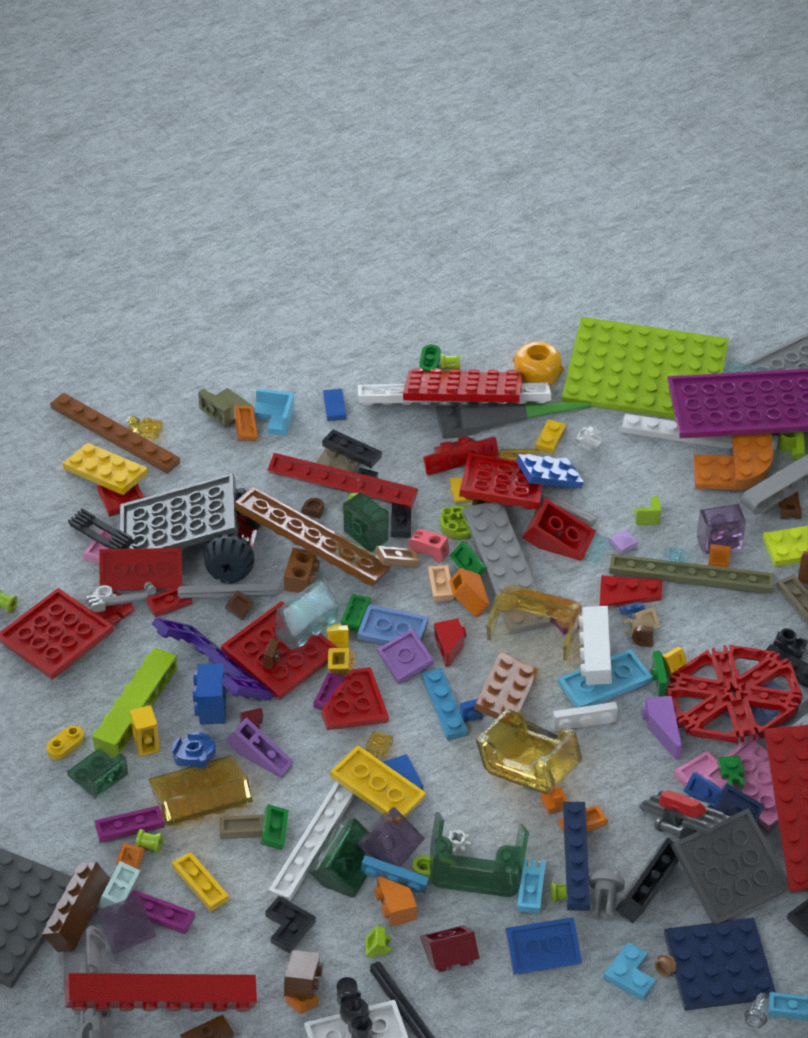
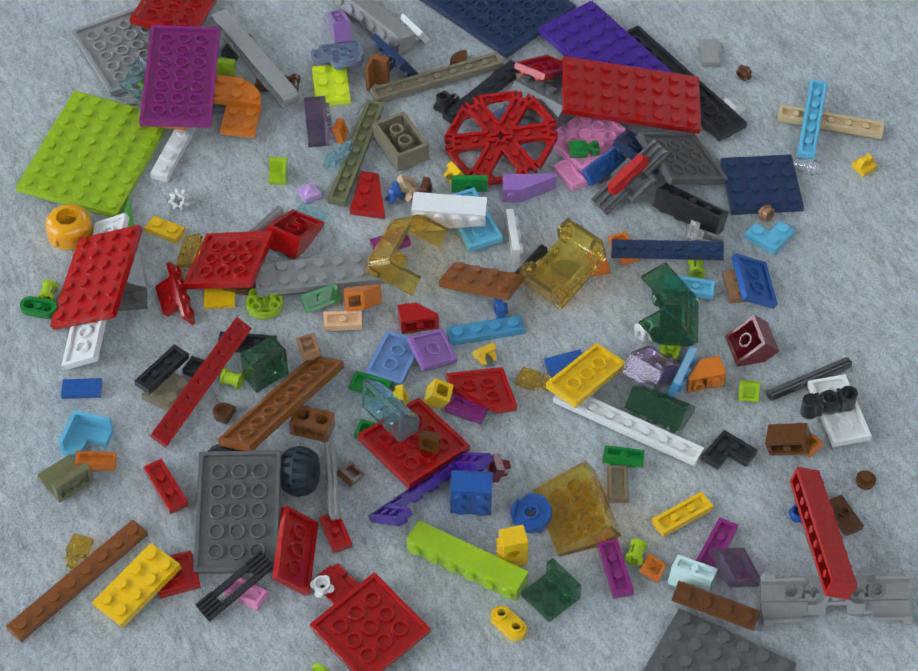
camera: 85 degrees left, 5 degrees up
(98, 604) = (338, 583): light grey hinge -> none
(233, 465) = (166, 486): none -> red plate
(258, 748) = (531, 465): medium lavender slope -> none
(408, 700) = (487, 350): none -> yellow tile
(430, 544) = (293, 324): coral leg -> none
(549, 471) = (221, 227): blue plate -> none
(709, 605) = (401, 141): none -> dark tan brick

